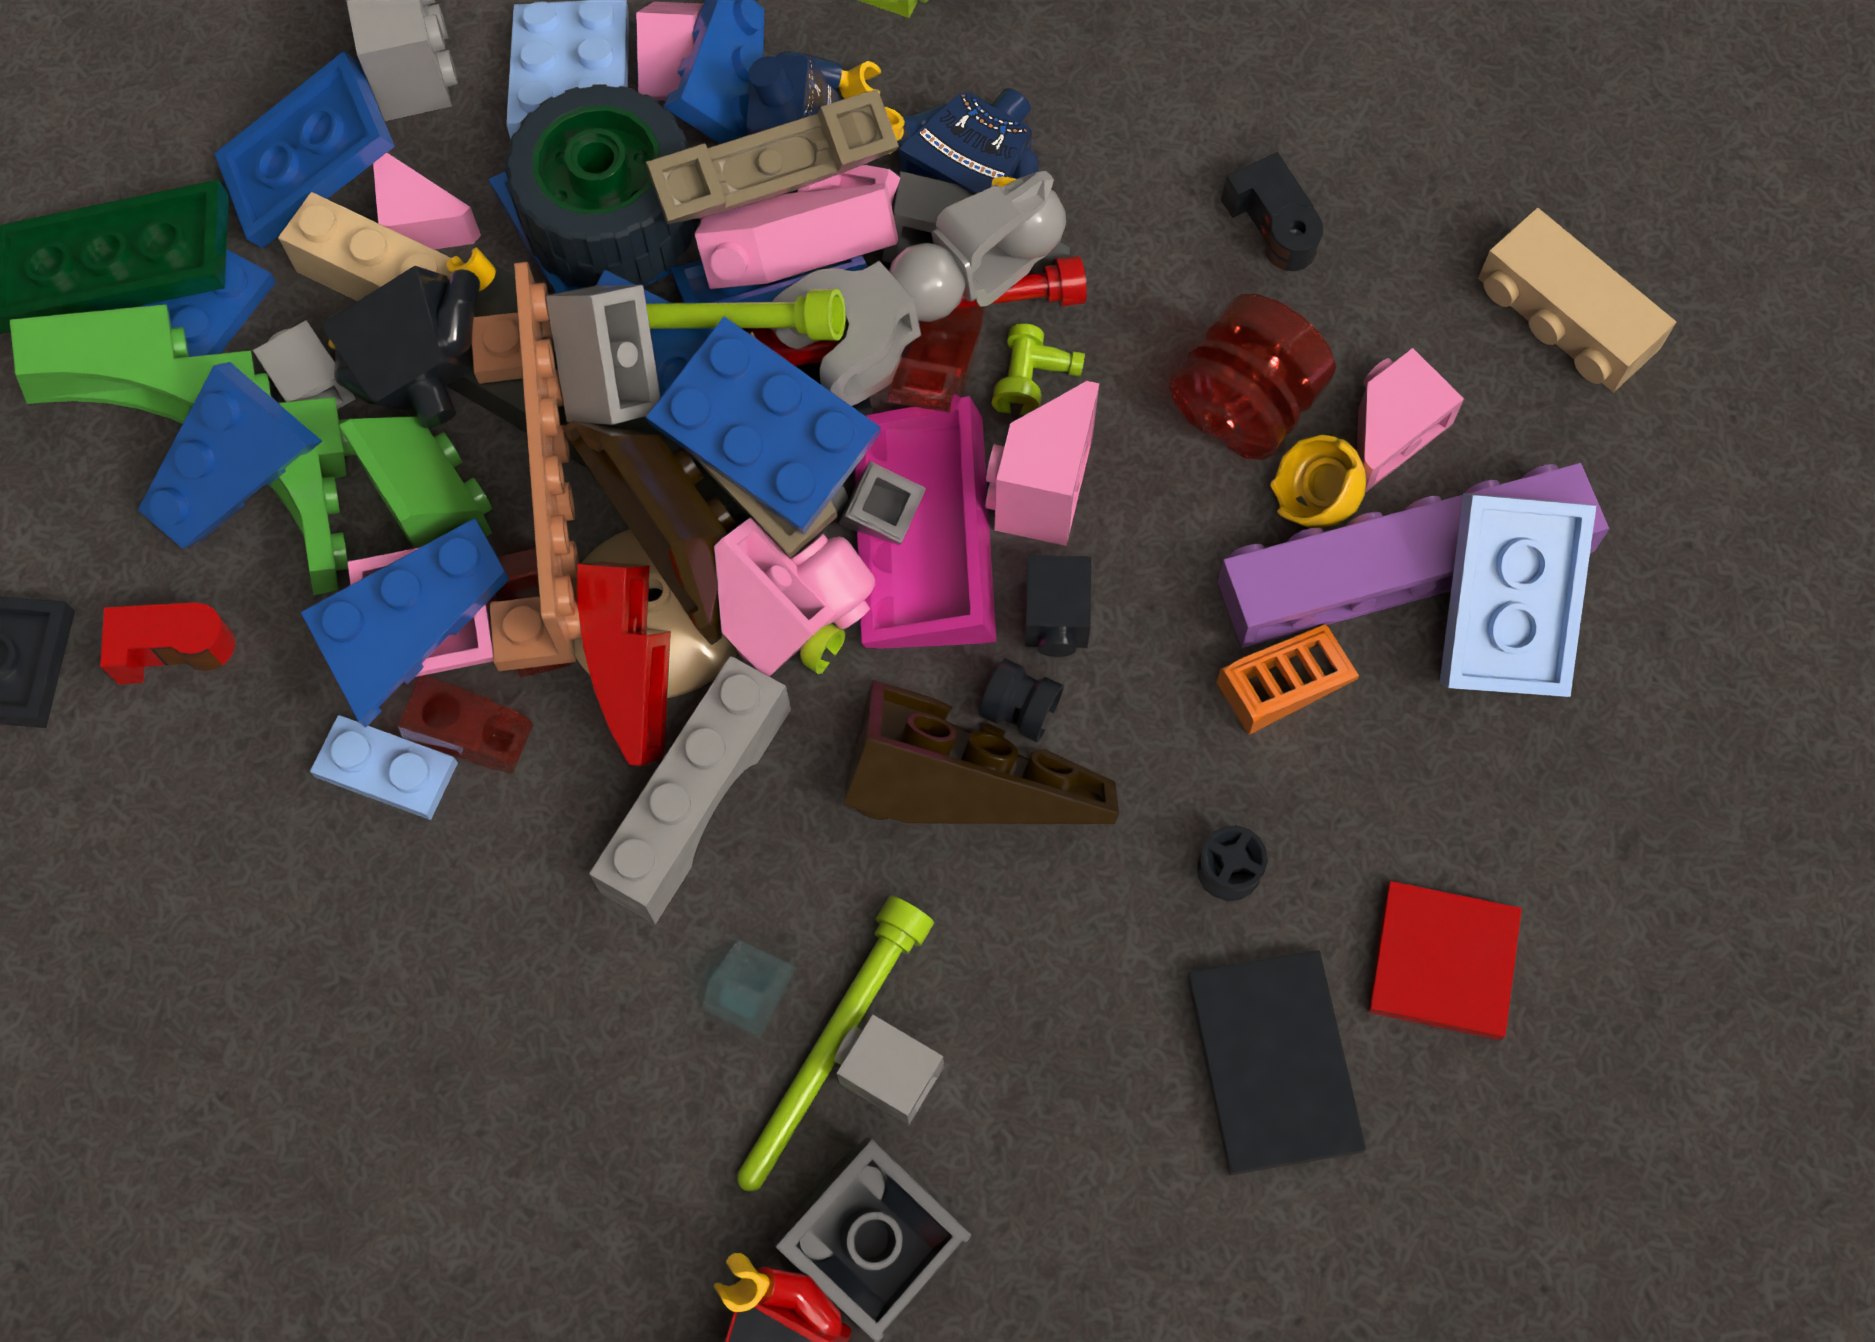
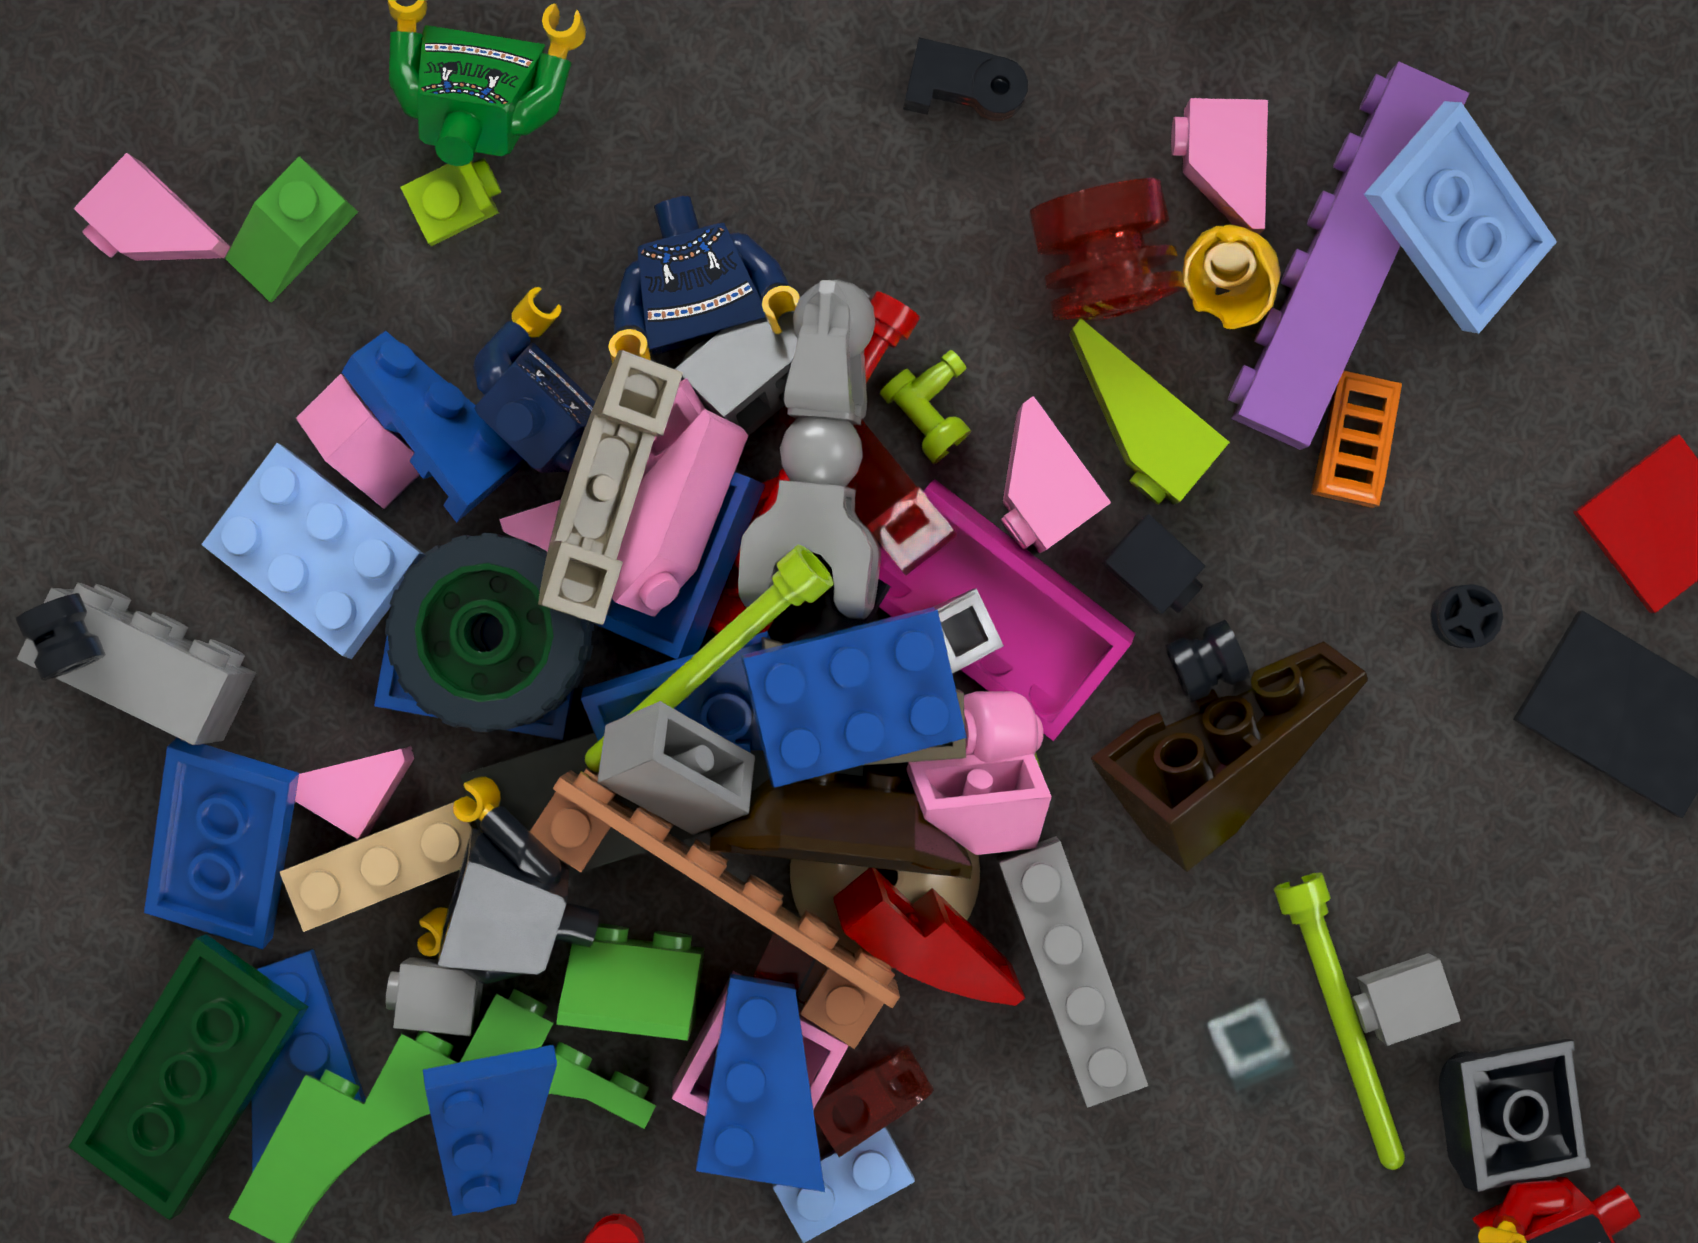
camera: 50 degrees left, 20 degrees up
(1157, 522) = (1151, 426): none -> lime slope

